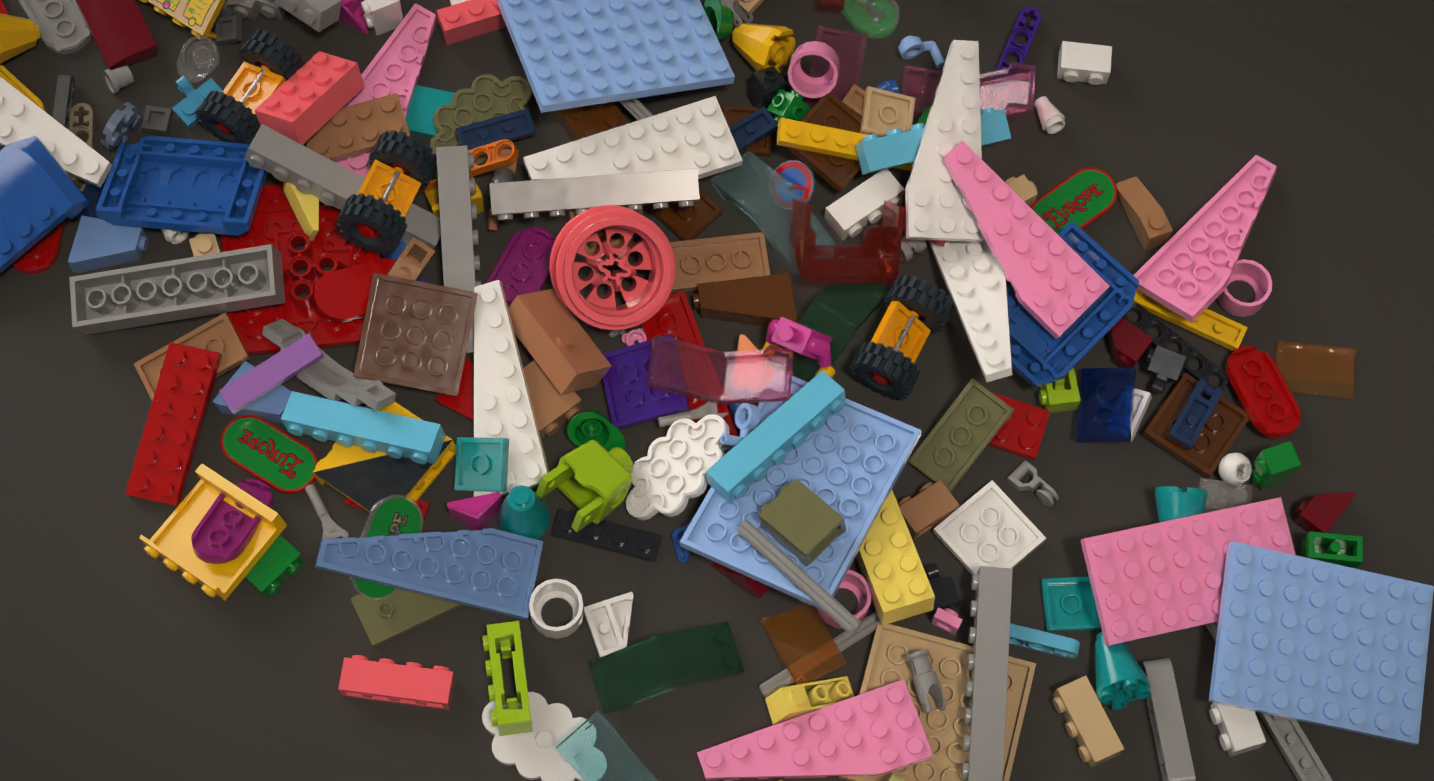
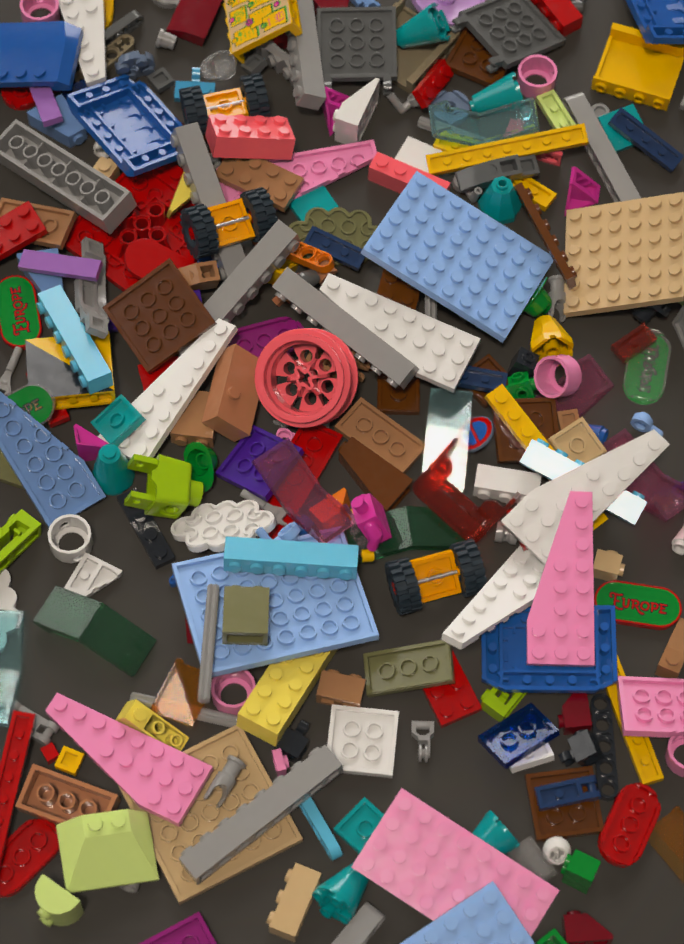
camera: 50 degrees right, 5 degrees down
(83, 238) = (46, 105): none -> medium lavender tile

